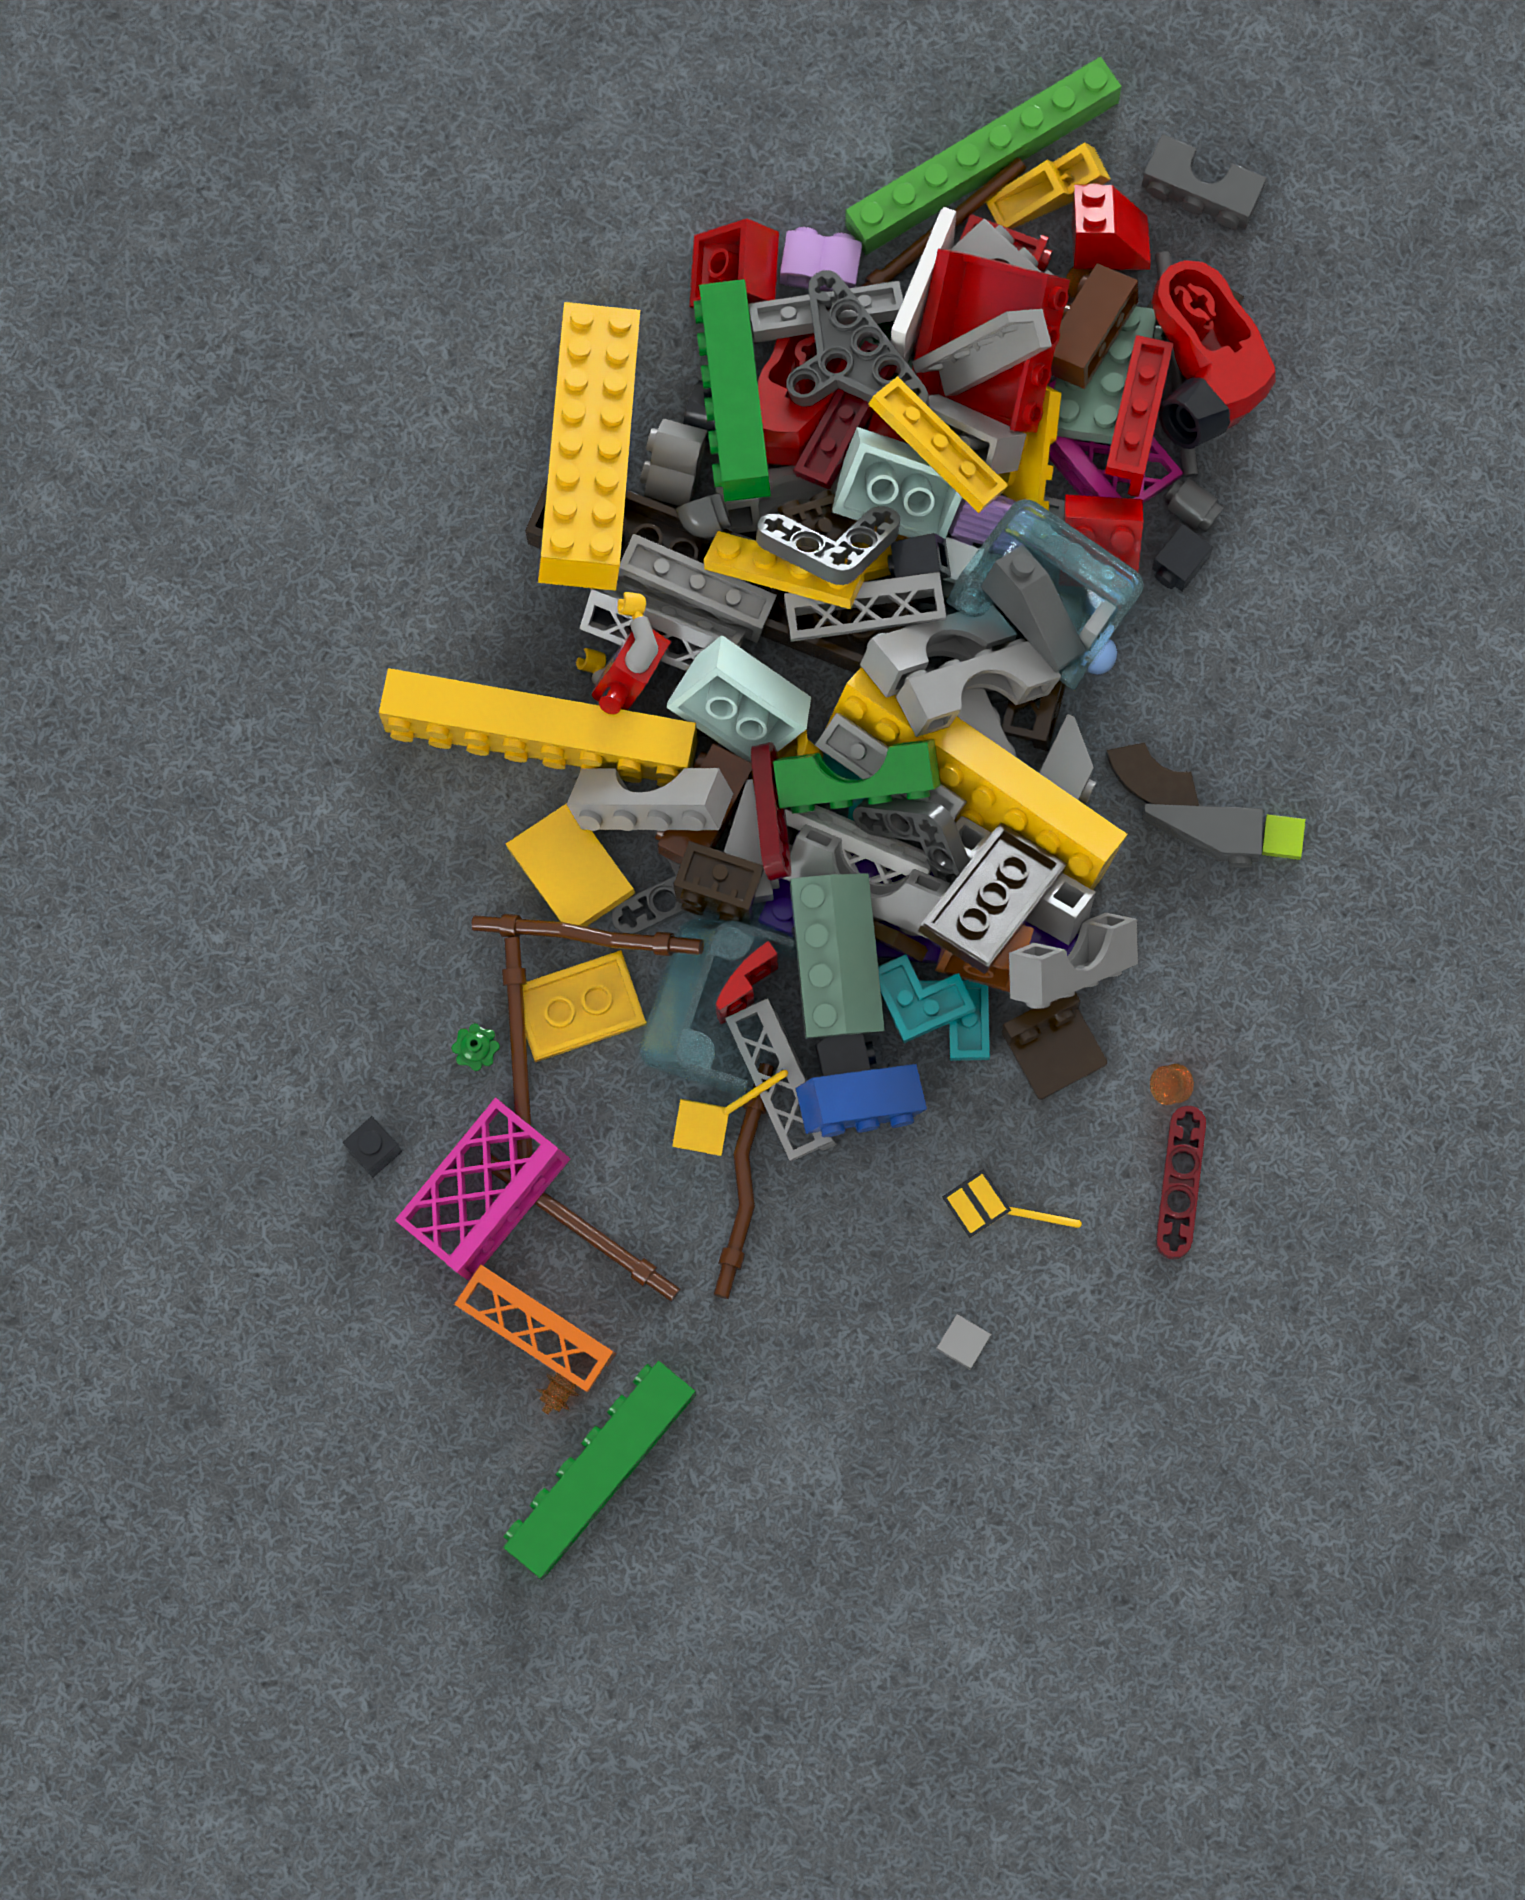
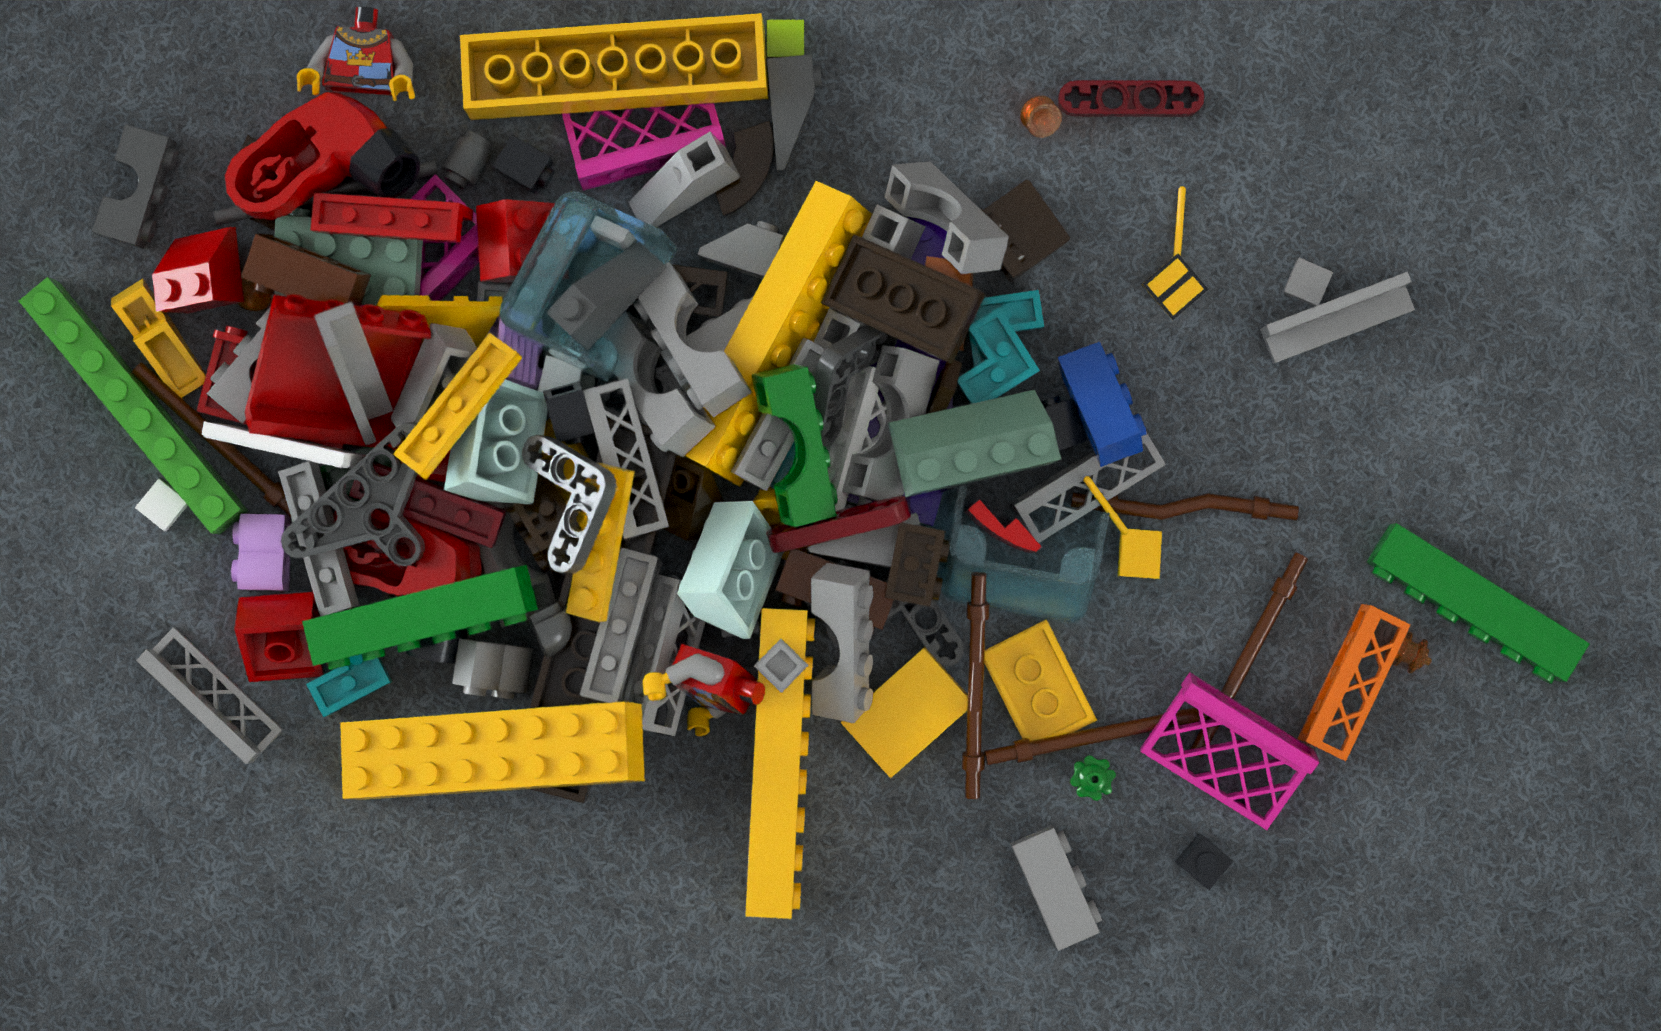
camera: 105 degrees left, 10 degrees up
(369, 994) = (1057, 887): none -> light grey brick
(635, 733) = (781, 665): none -> light grey tile
(675, 185) = (200, 706): none -> light grey fence
(677, 327) = (348, 684): none -> teal plate
(816, 671) = (689, 498): none -> dark brown slope
(879, 170) = (161, 505): none -> white tile
(921, 1367) = (1338, 318): none -> light grey fence
(1145, 713) = (685, 180): none -> light grey slope
(1177, 688) = (641, 157): none -> dark pink fence
(1271, 656) = (614, 66): none -> yellow brick
(1306, 410) = (360, 61): none -> torso

